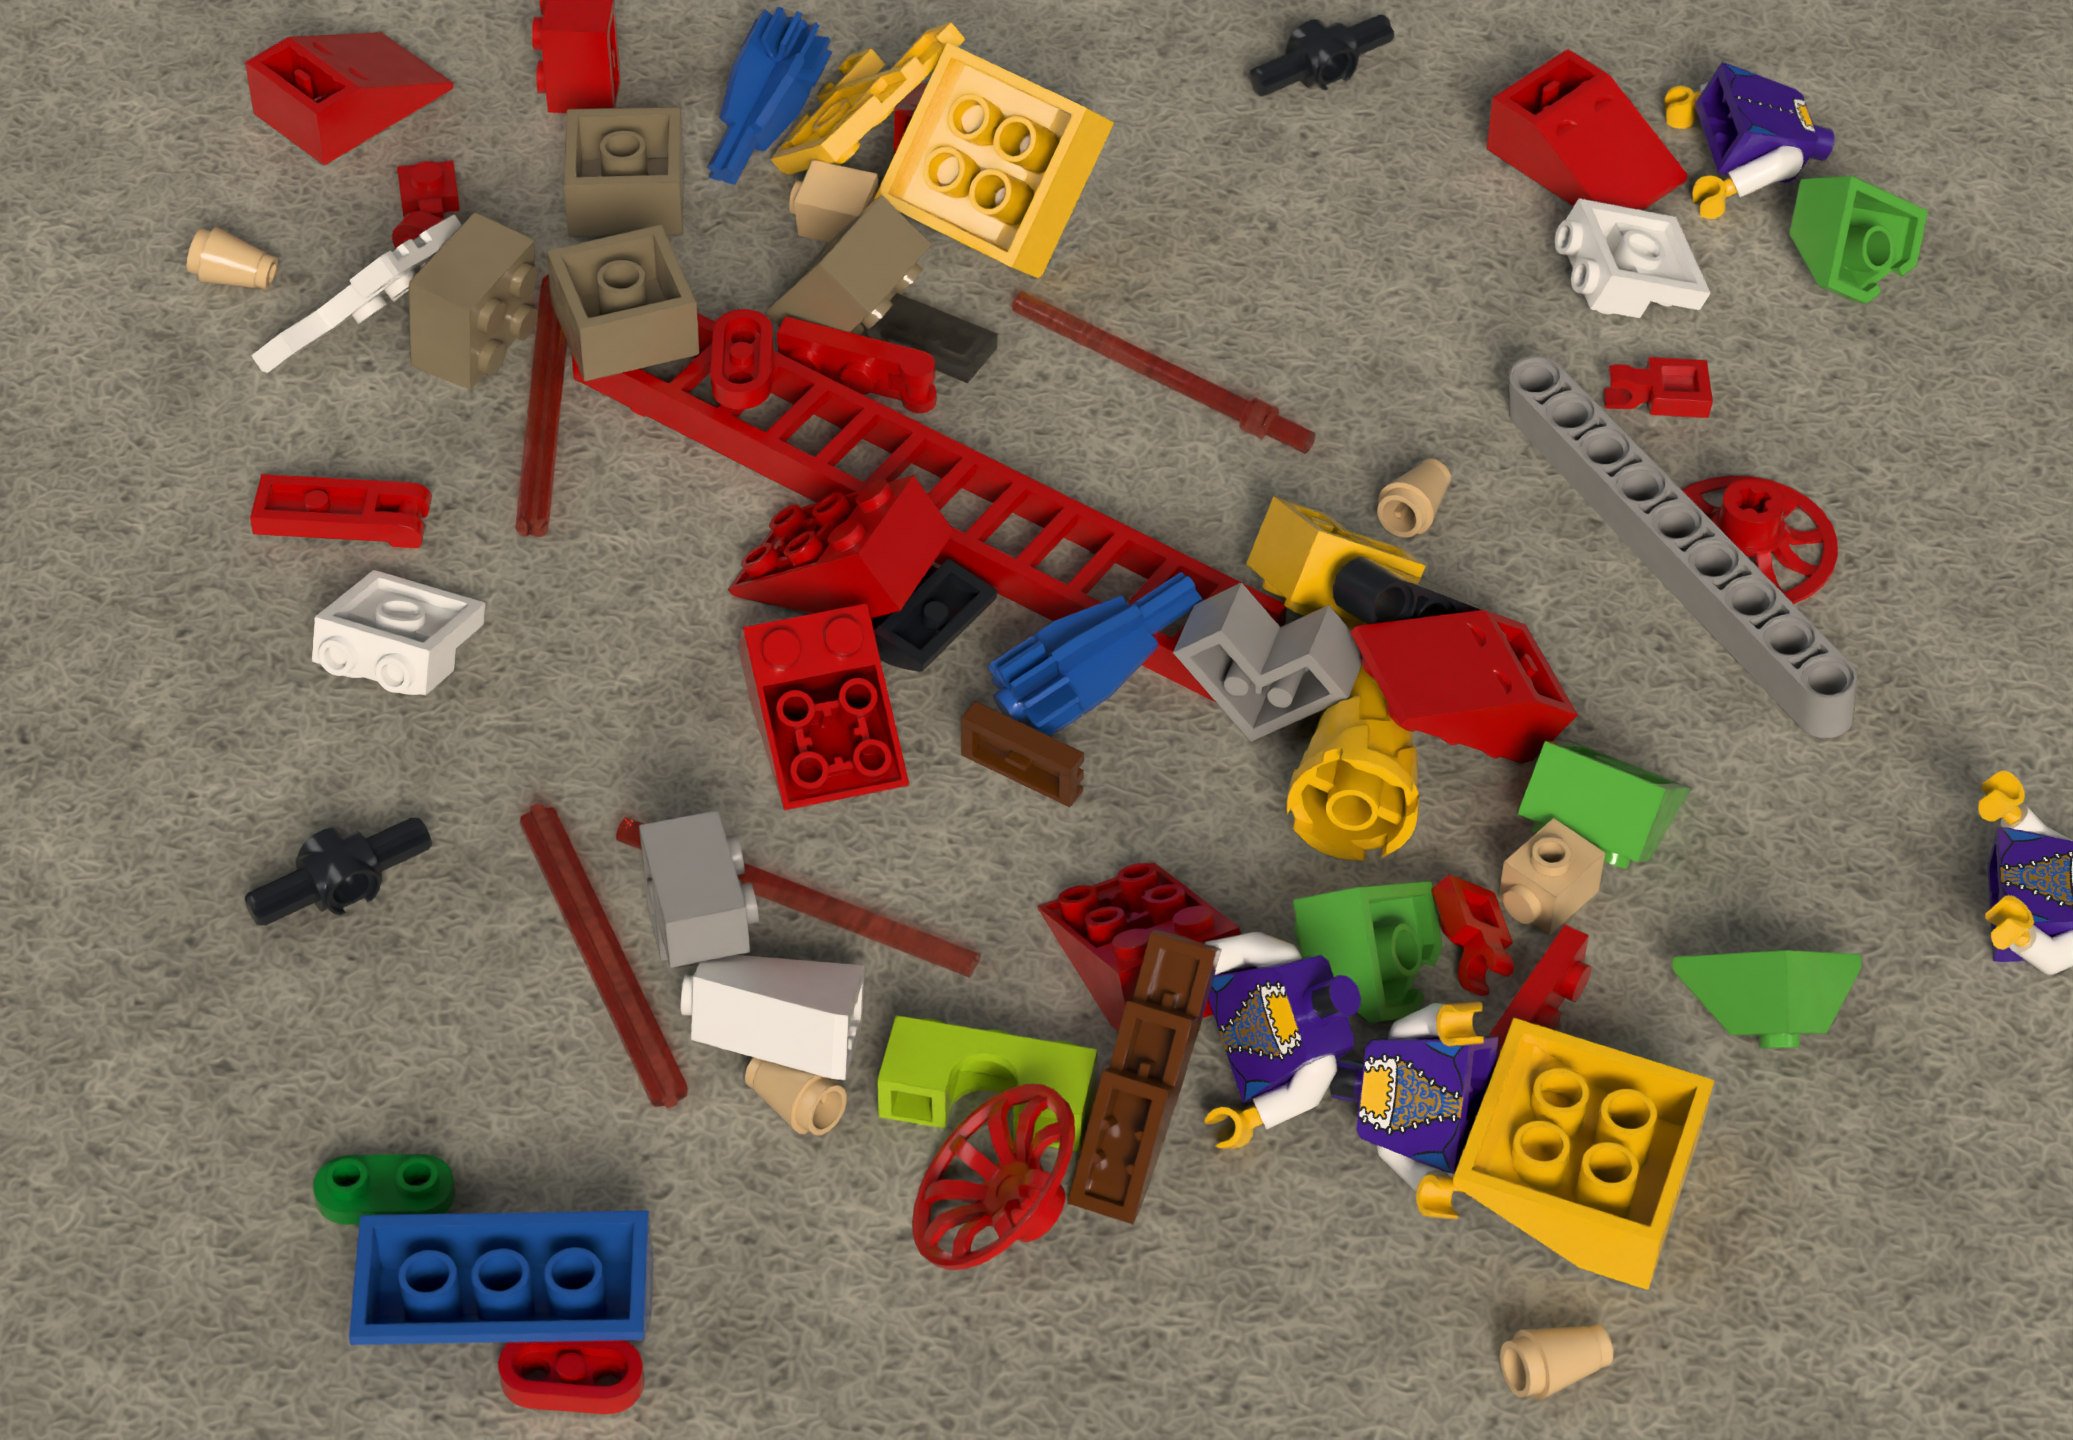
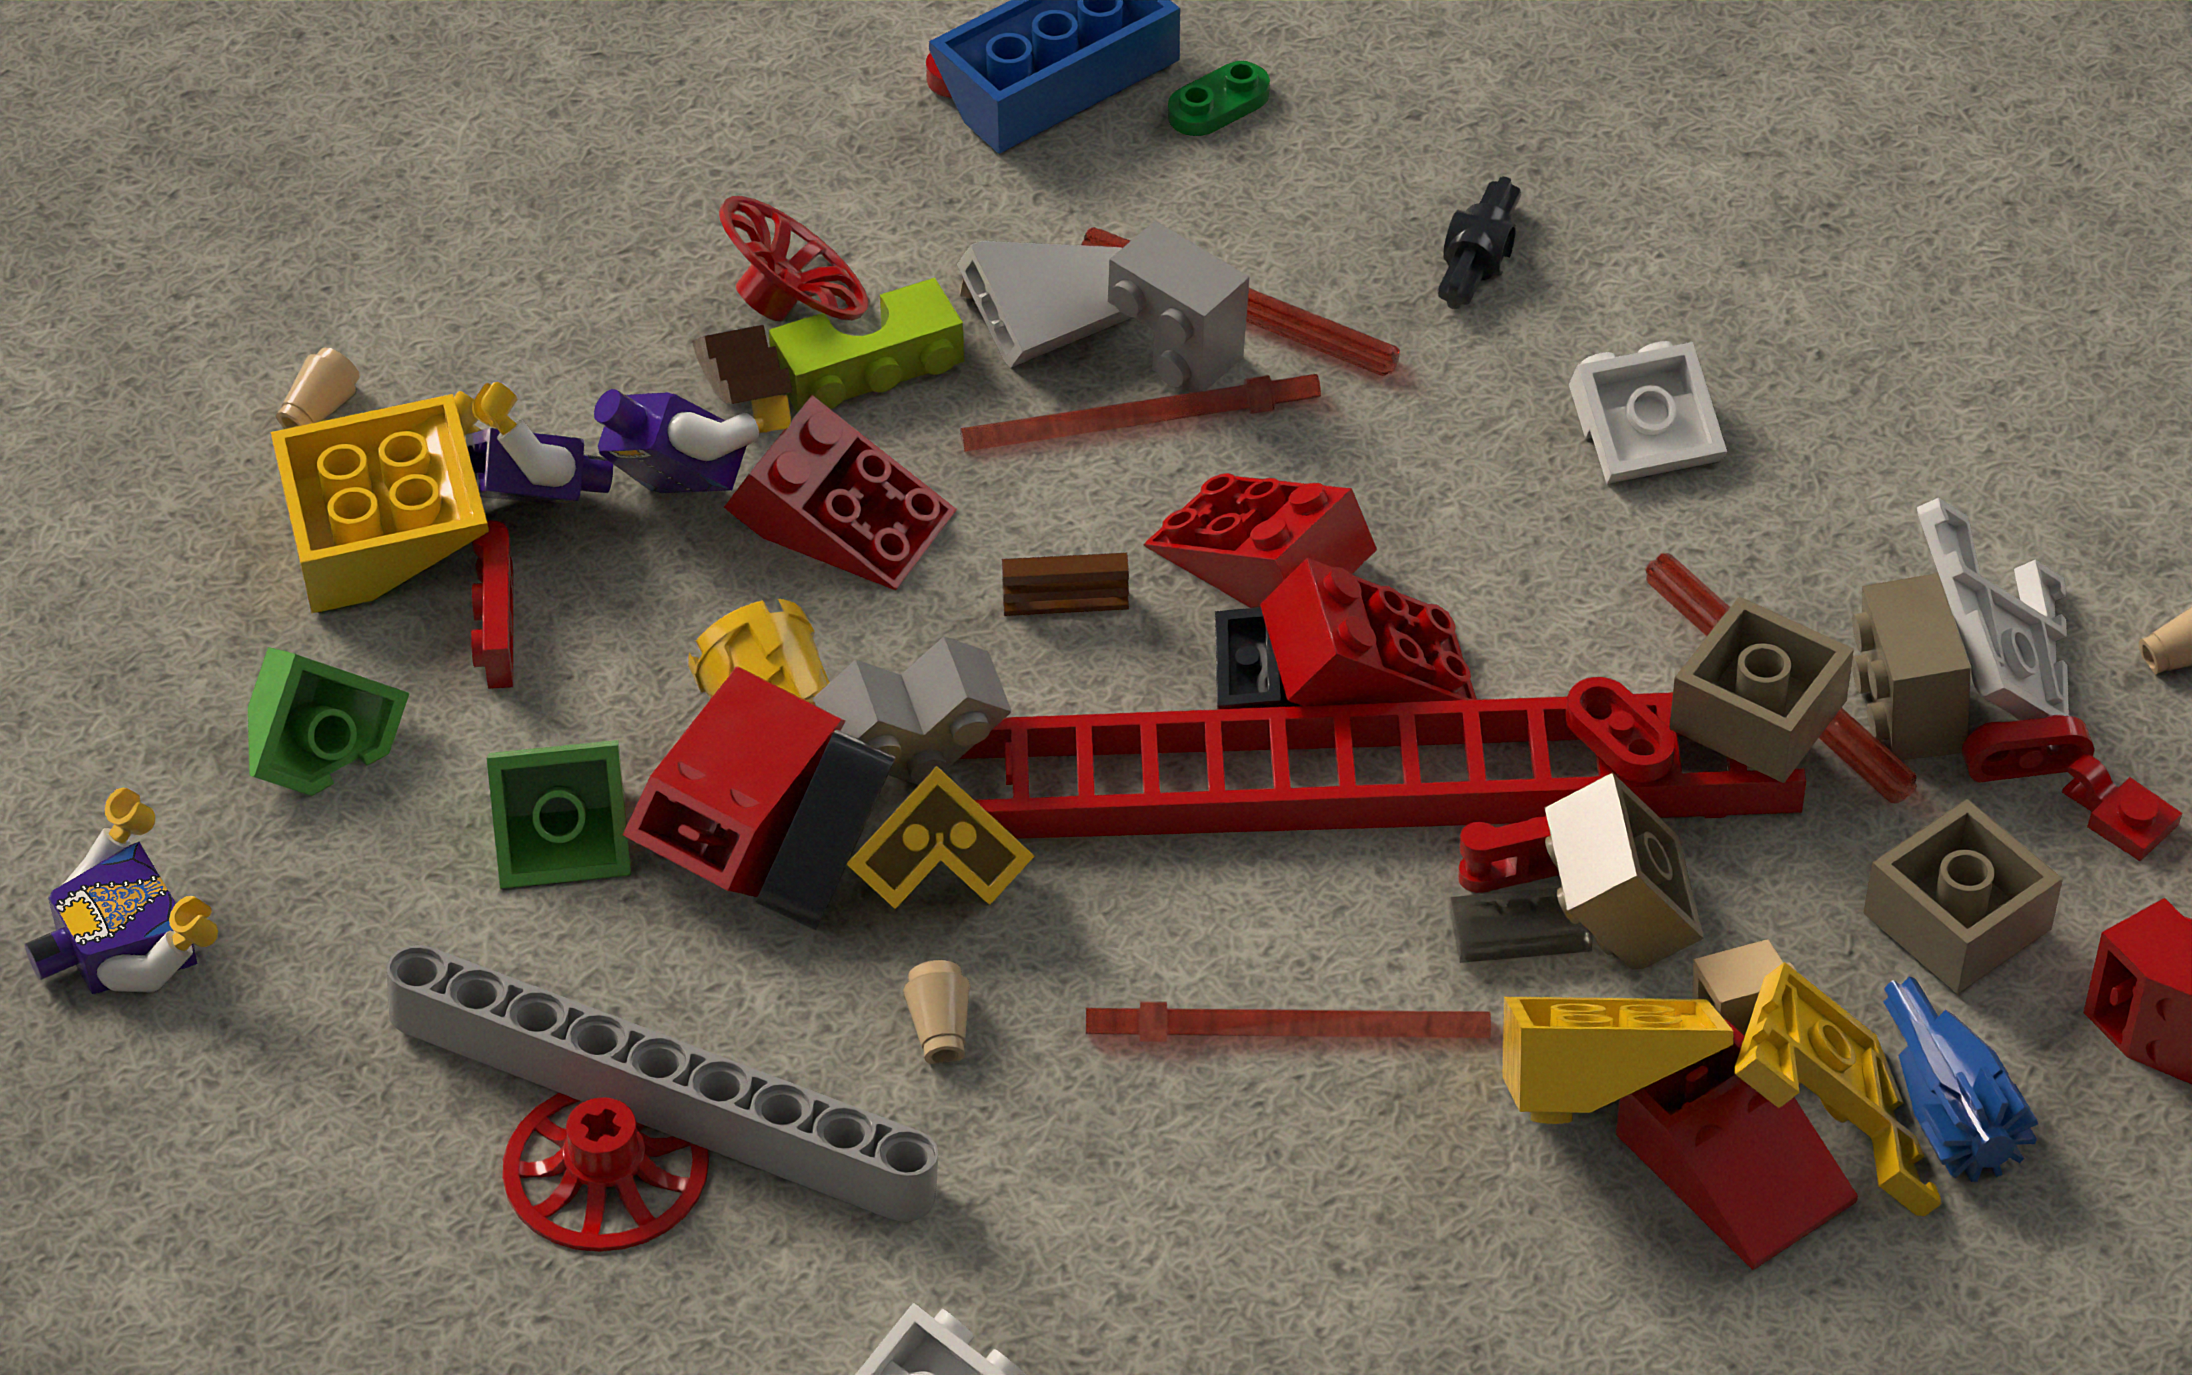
camera: 145 degrees right, 0 degrees up
(341, 509) = (1817, 488): red plate -> none
(1085, 656) = (1087, 637): blue piece -> none
(1376, 940) = (661, 582): bright green slope -> none
(1476, 923) = (593, 650): red plate -> none
(1550, 877) = (556, 708): tan brick -> none
(1667, 385) = (790, 1276): red plate -> none

